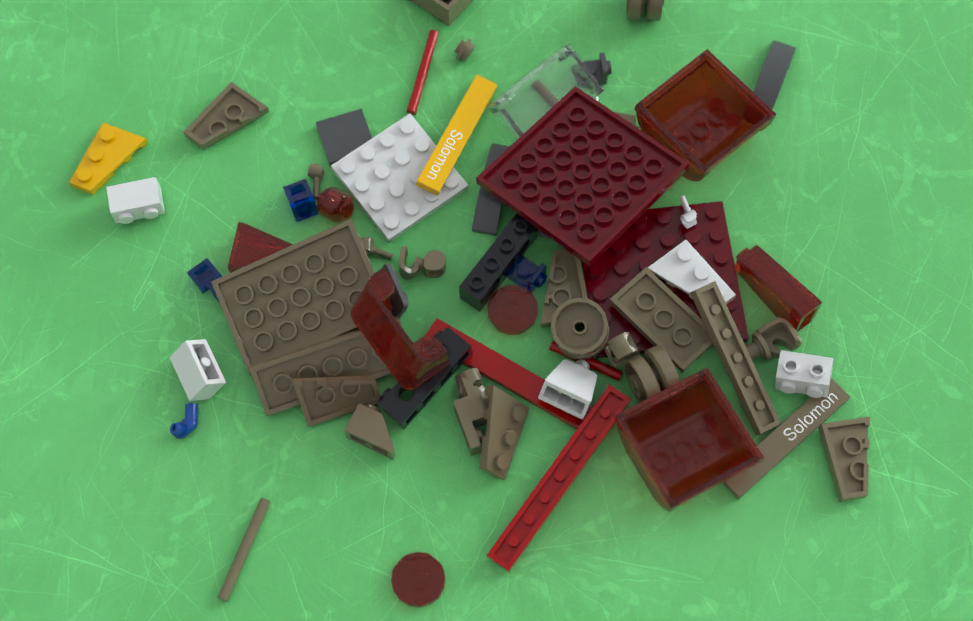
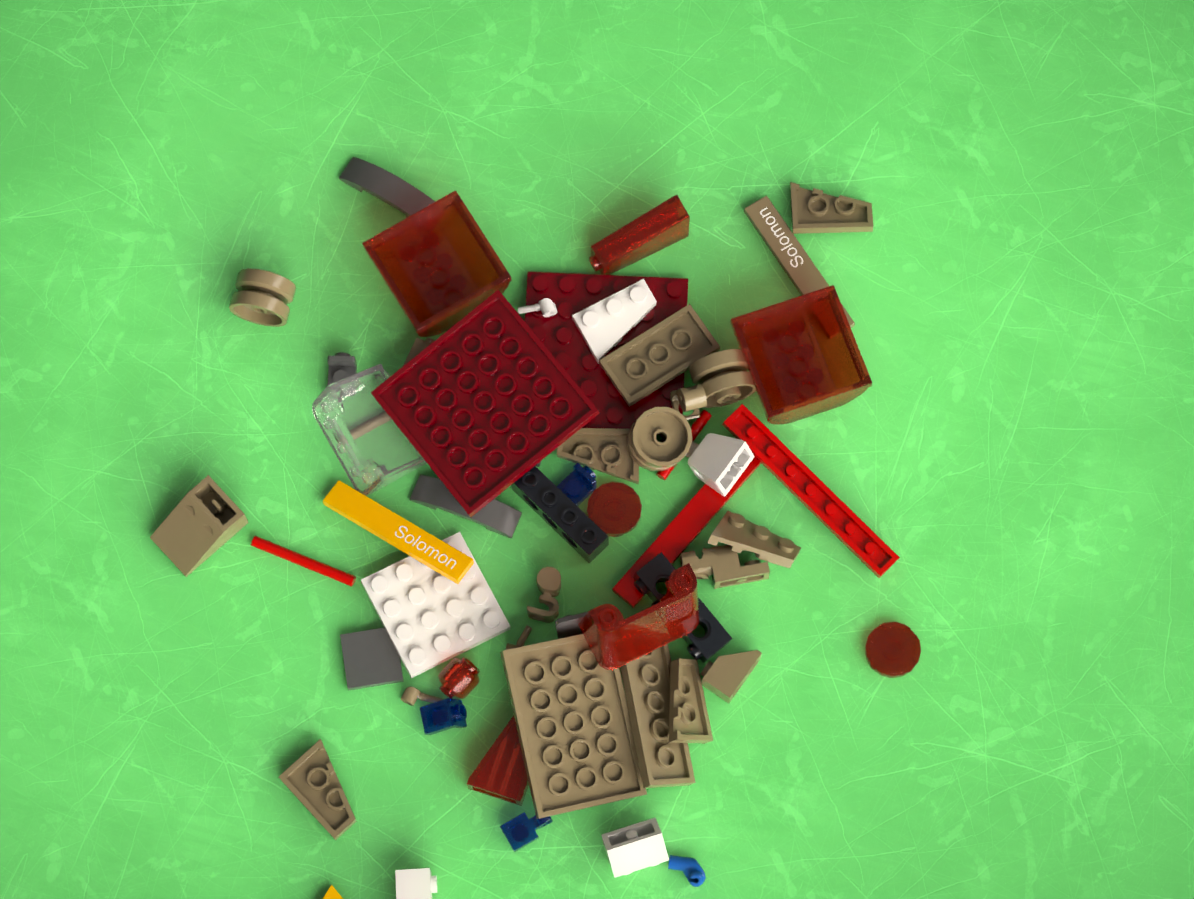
camera: 80 degrees left, 5 degrees up
(243, 550) = (836, 822): dark tan bar -> none
(464, 49) = (287, 508): dark tan plate -> none
(735, 358) = (714, 293): dark tan plate -> none
(775, 332) = (695, 265): dark tan piece -> none
(804, 374) = (739, 233): white brick -> none

